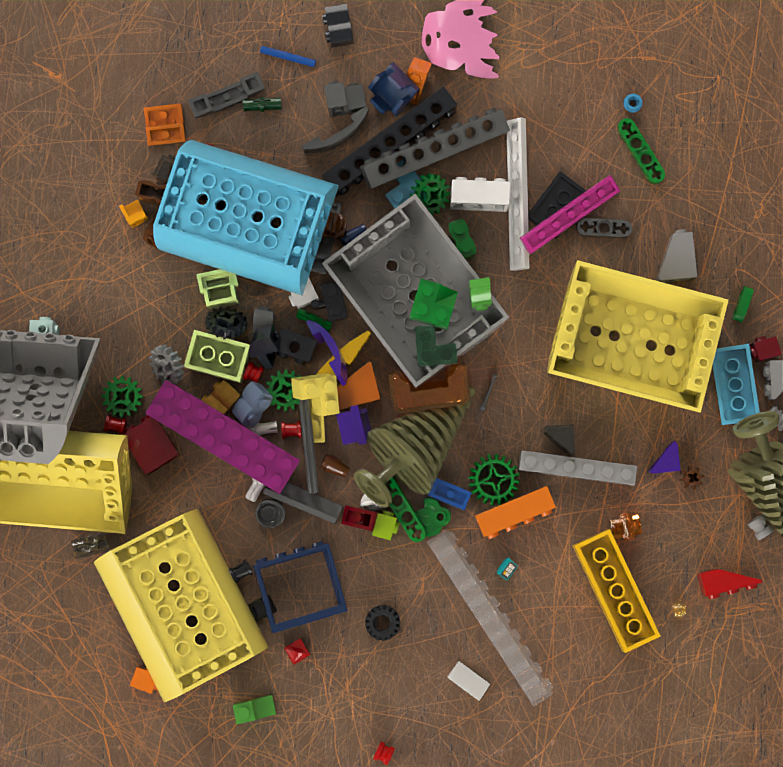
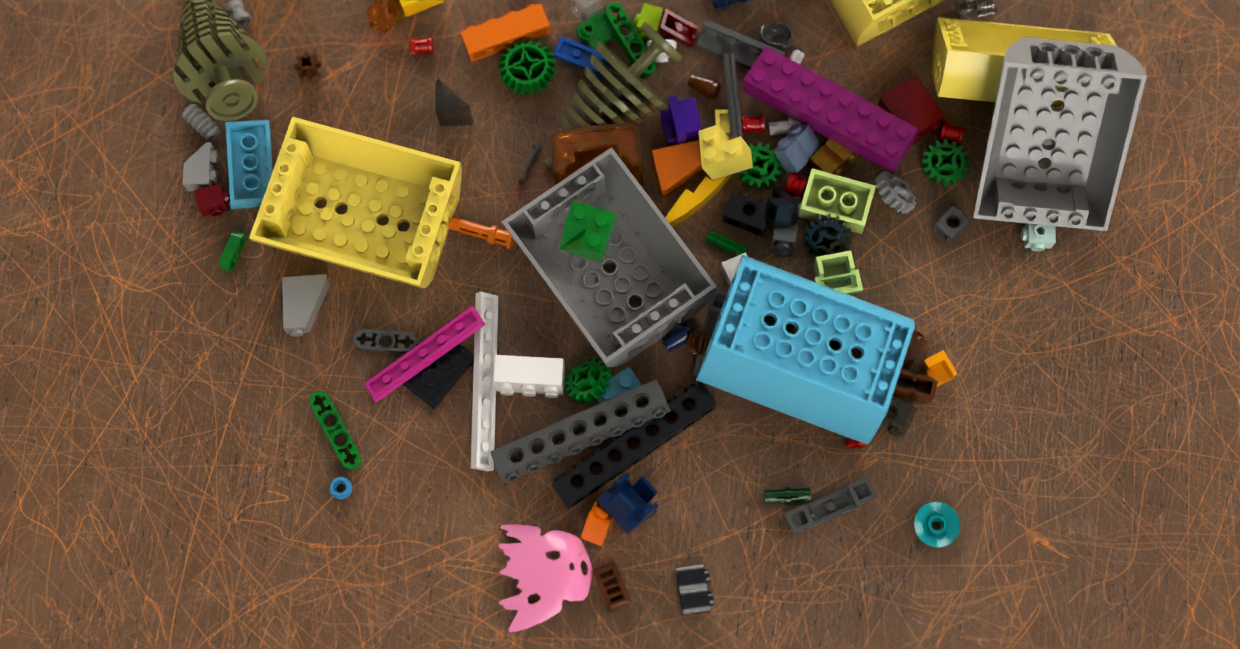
camera: 175 degrees left, 10 degrees down
(128, 339) = (949, 233): none -> dark grey brick
(135, 74) = (939, 513): none -> teal dish
(164, 124) = (904, 475): orange slope -> none
(288, 56) = (757, 556): blue bar -> none
(317, 145) = (721, 444): dark grey slope -> none
(332, 301) = (703, 254): black plate -> none
(338, 364) = (697, 175): dark purple slope -> none
(343, 99) = (687, 496): dark grey brick -> none
(400, 12) = (619, 603): none -> reddish brown slope
(431, 354) = (590, 178): clear green plate -> none
(459, 235) = (553, 330): green brick -> none
(480, 293) = (534, 241): bright green arch -> none
(517, 324) = (491, 234): none -> orange pin
(577, 468) = (424, 74): light grey brick -> none
(590, 499) = (422, 45): none -> red bush
(667, 461) = (334, 82): dark purple slope -> none

